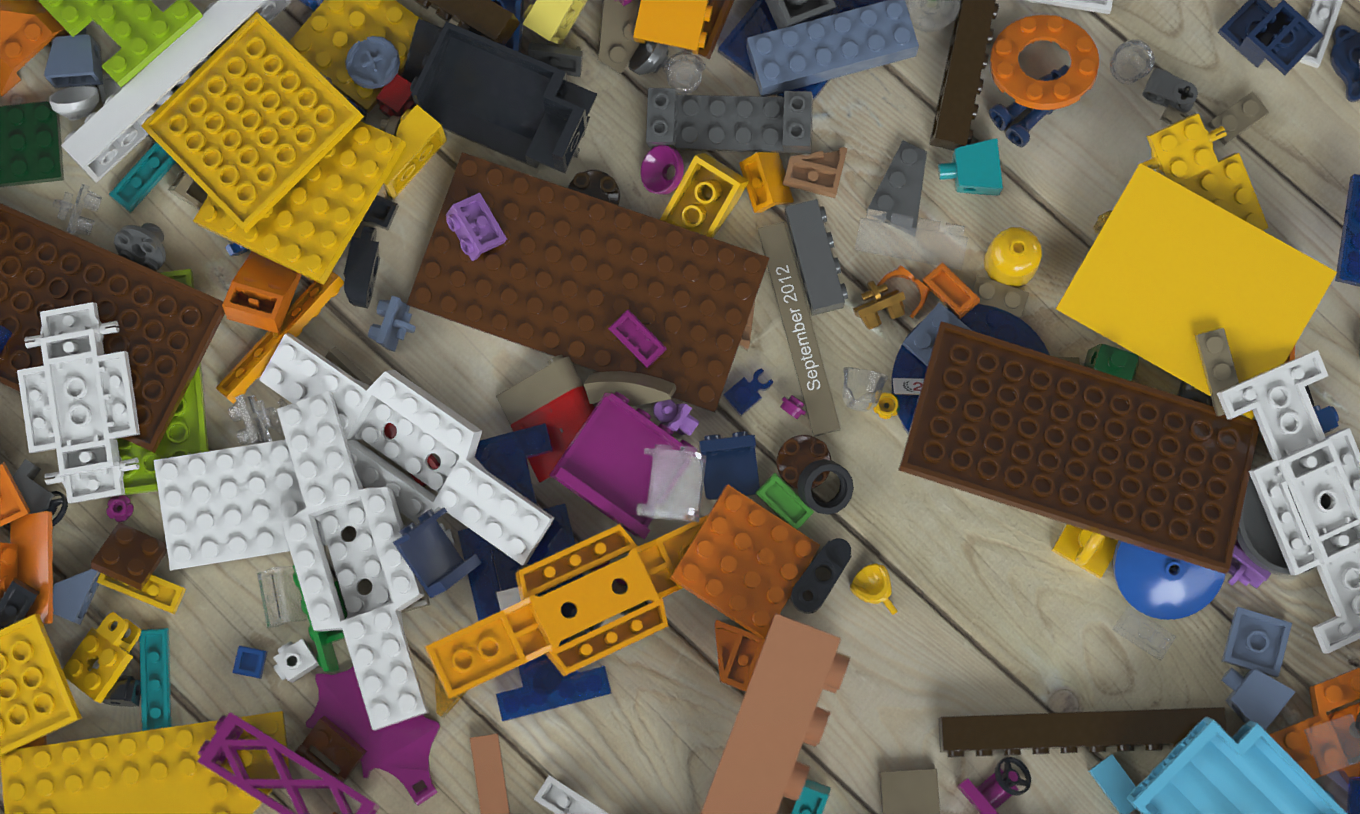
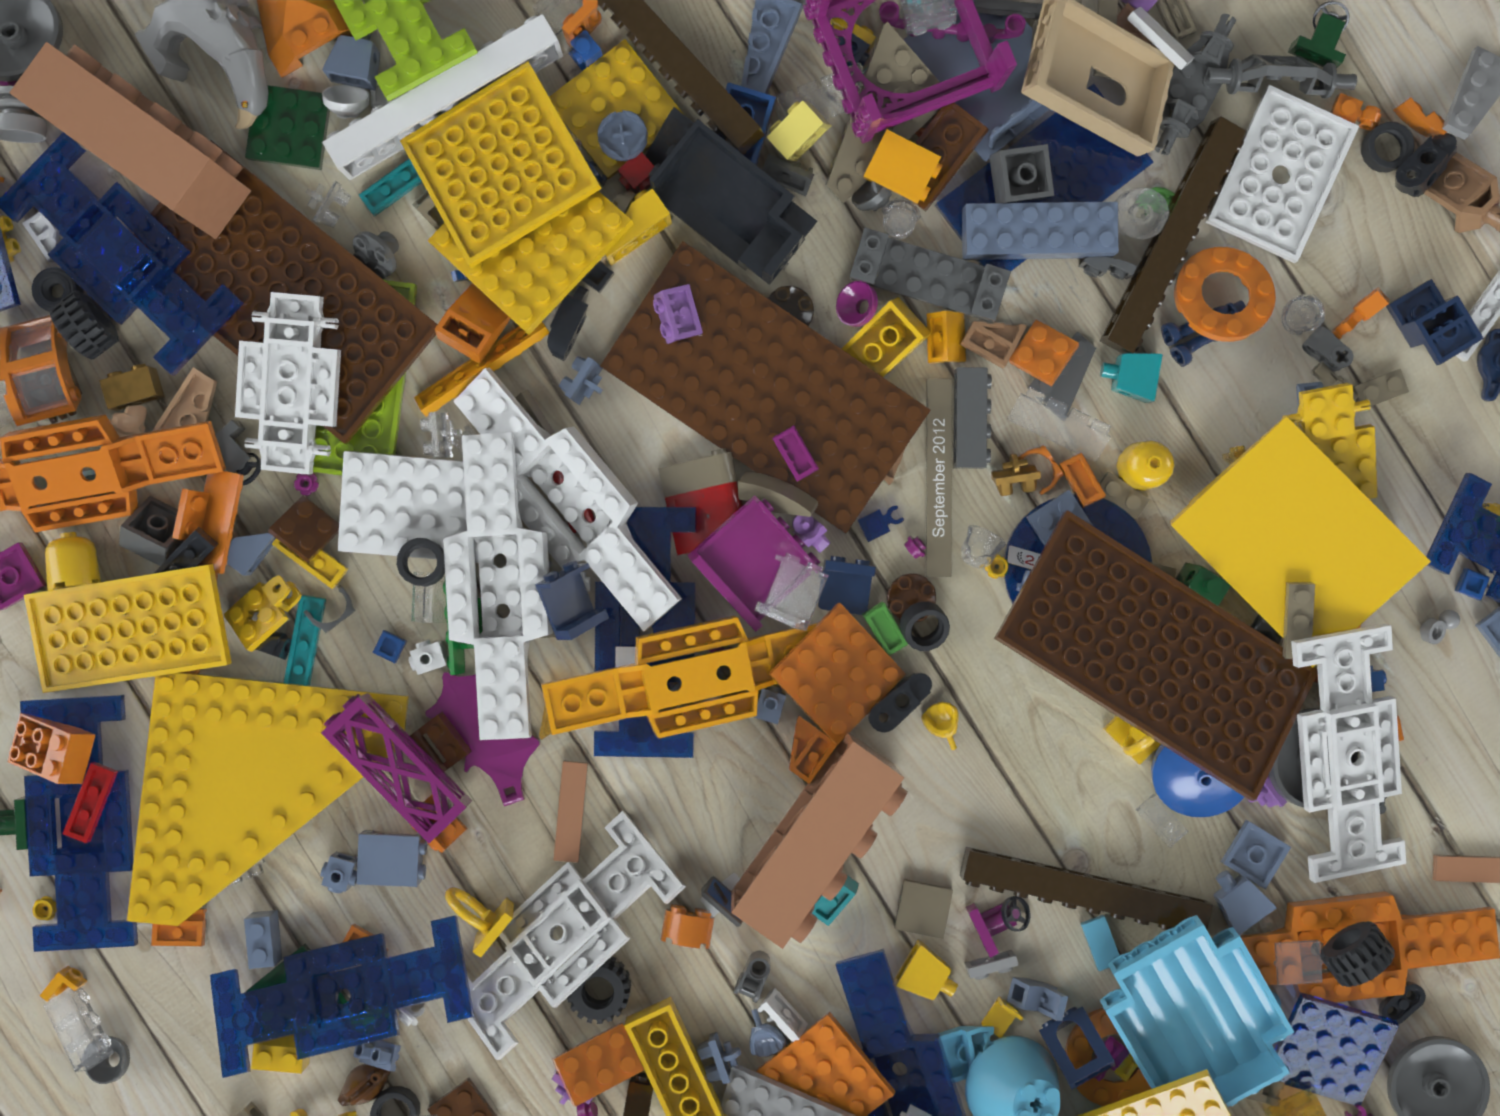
camera: 15 degrees right, 10 degrees up
(178, 655) = (326, 627): none -> dark grey cap
(247, 544) = (402, 562): none -> black tyre
(680, 615) = (770, 704): none -> sand blue brick
(873, 170) = (1043, 352): none -> orange plate
(904, 67) = (1100, 265): none -> dark grey slope
(1195, 43) = (1362, 311): none -> orange piece

